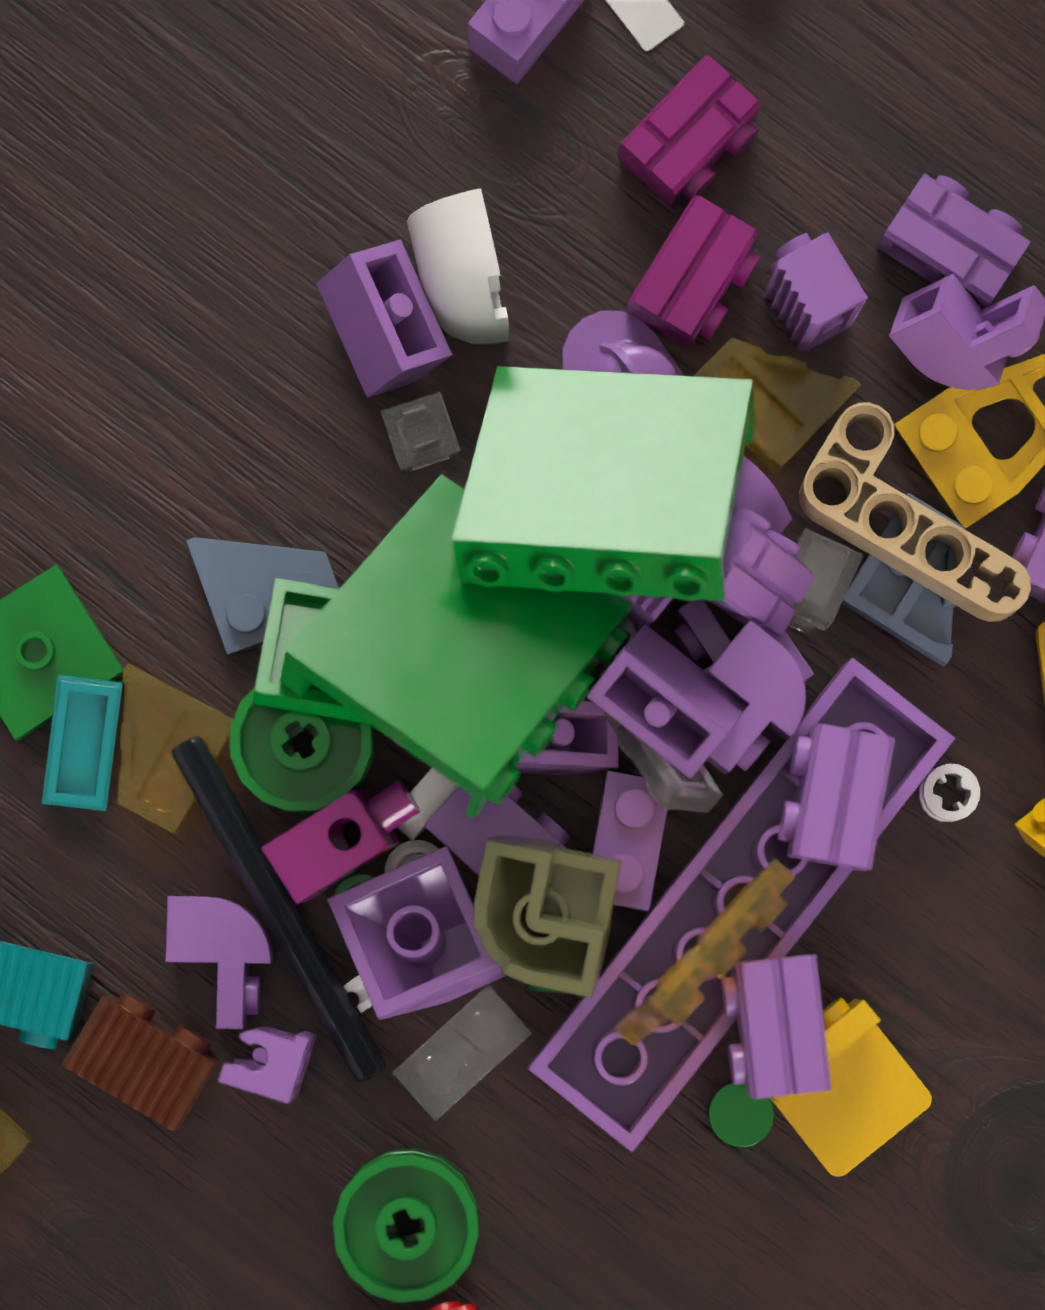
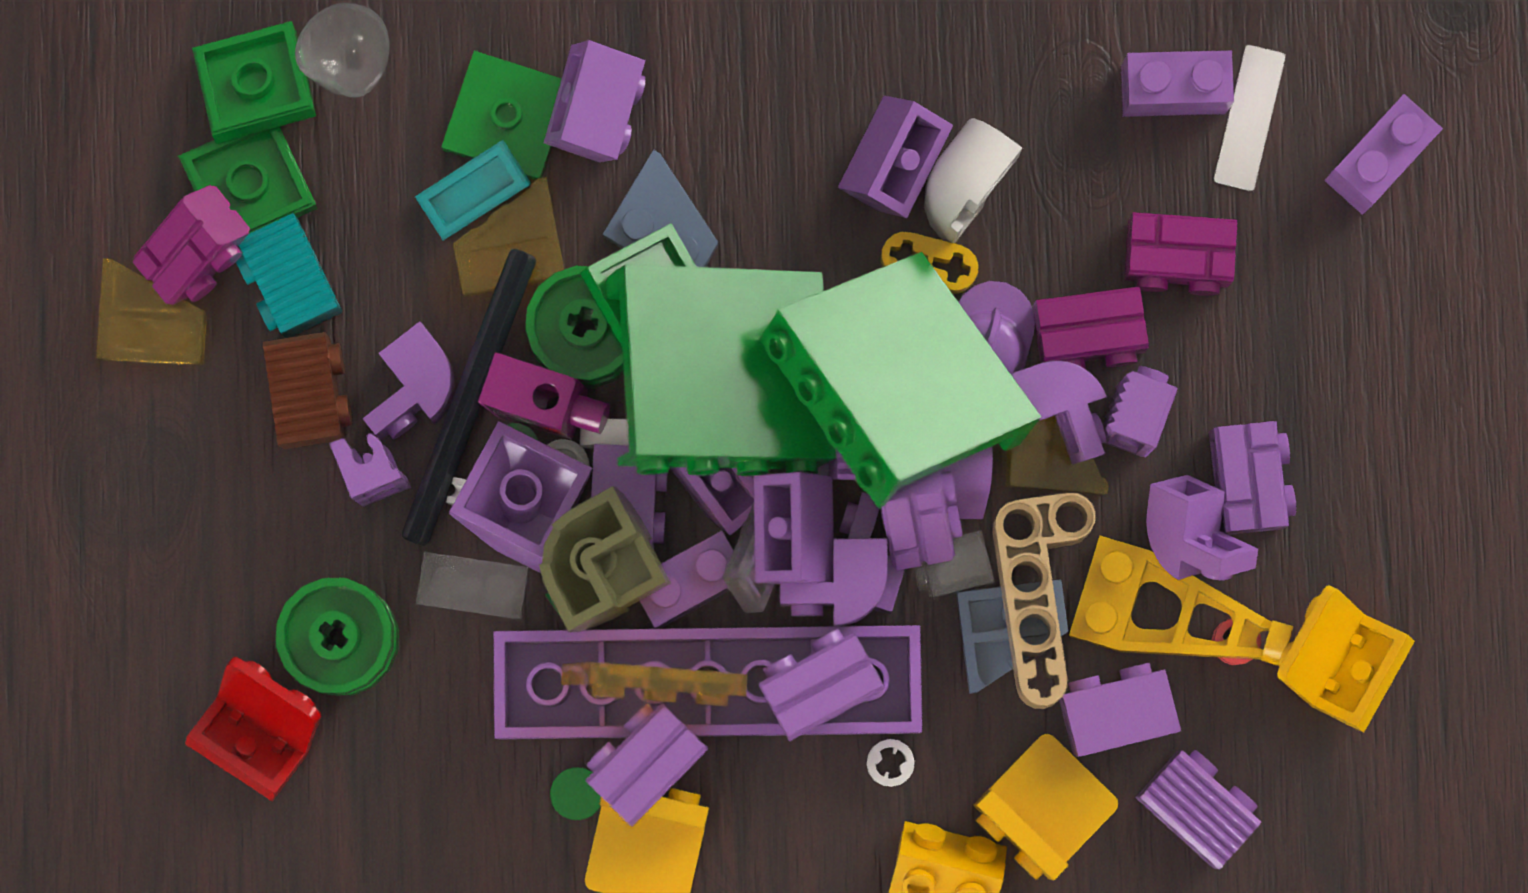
camera: 55 degrees right, 0 degrees up
(95, 556) = (595, 102): none -> medium lavender brick
(420, 432) = (844, 240): clear tile -> none
(503, 354) = (936, 251): none -> yellow beam
(744, 345) = (1065, 392): none -> medium lavender brick

